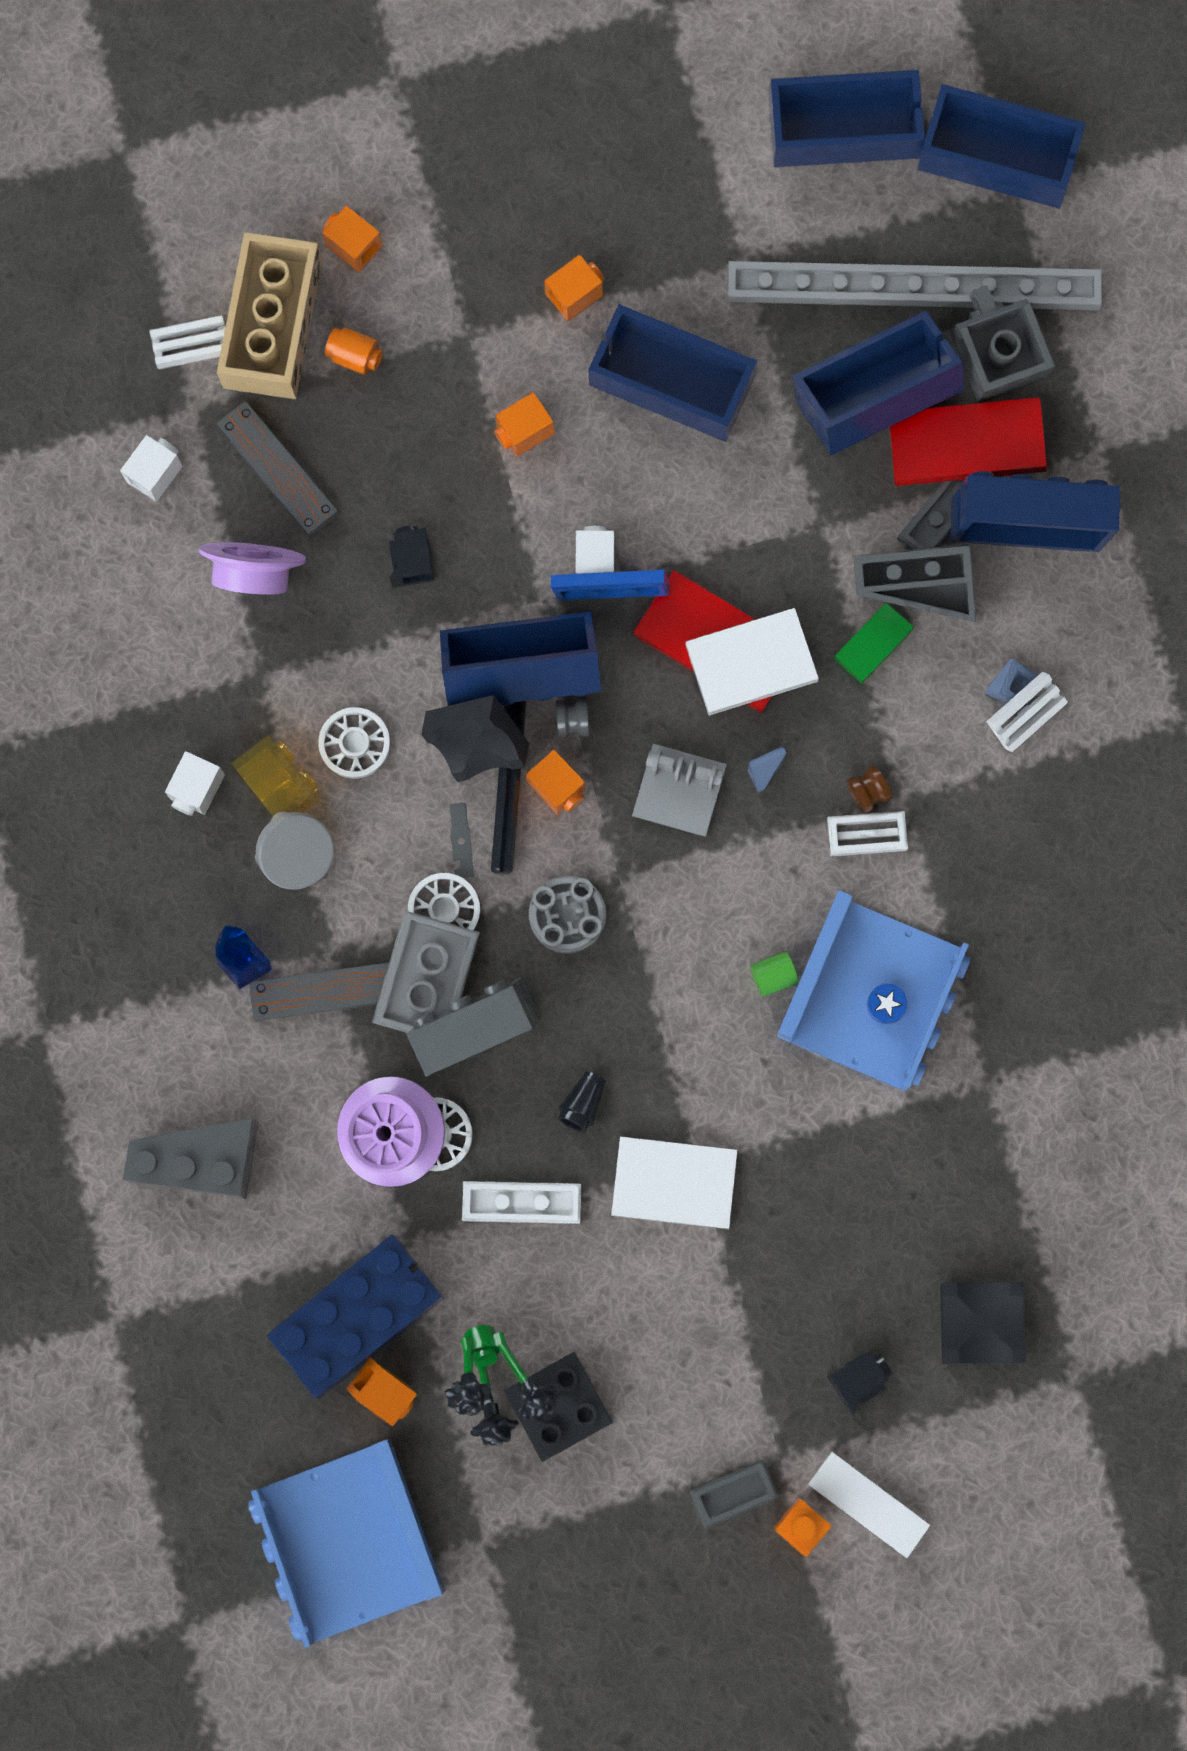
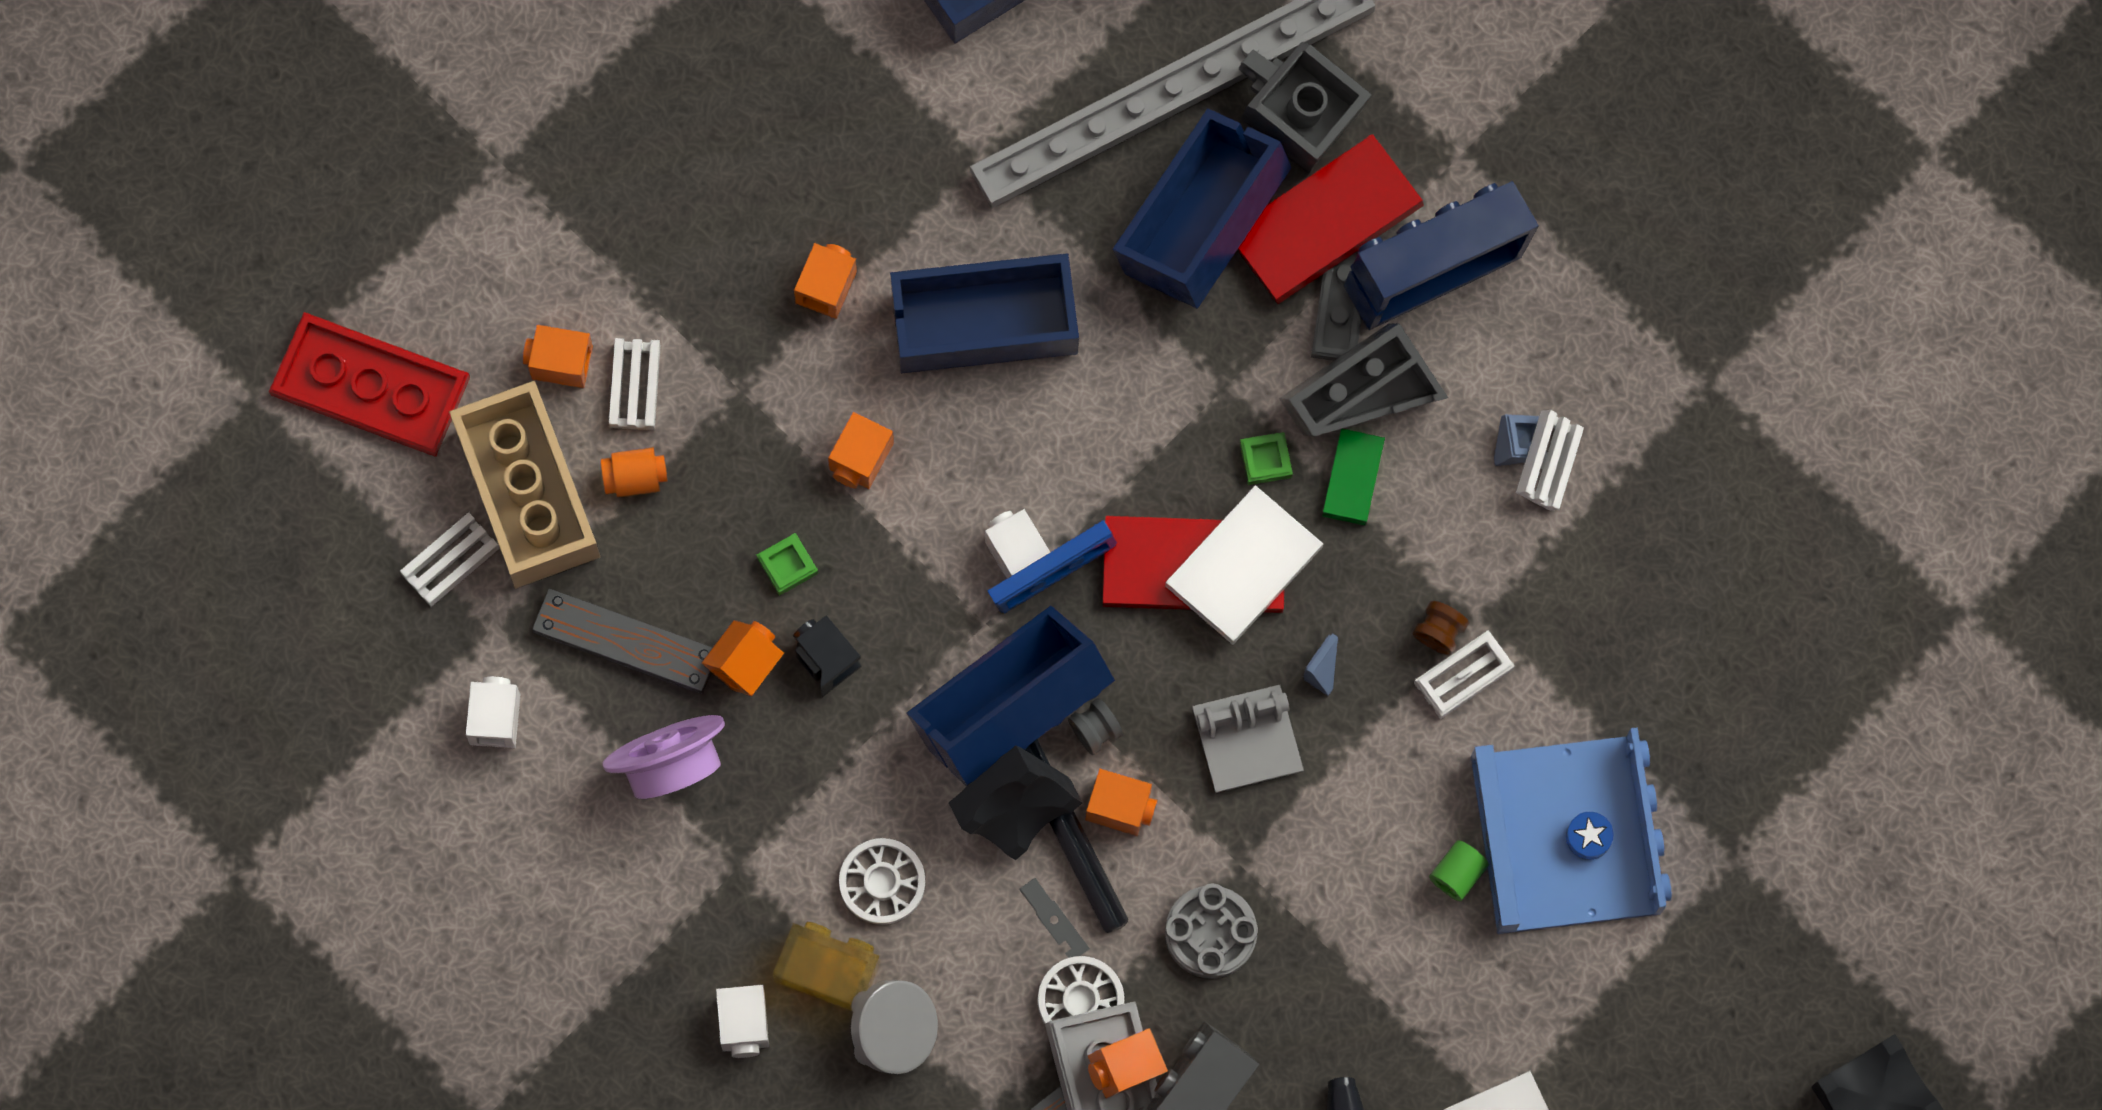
camera: 40 degrees left, 5 degrees down
(209, 185) = (369, 384): none -> red tile
(351, 525) = (743, 656): none -> orange brick
(410, 264) = (637, 347): none -> white tile
(425, 478) = (787, 564): none -> bright green tile
(440, 973) = (1126, 1063): none -> orange brick
(817, 594) = (1266, 458): none -> bright green tile

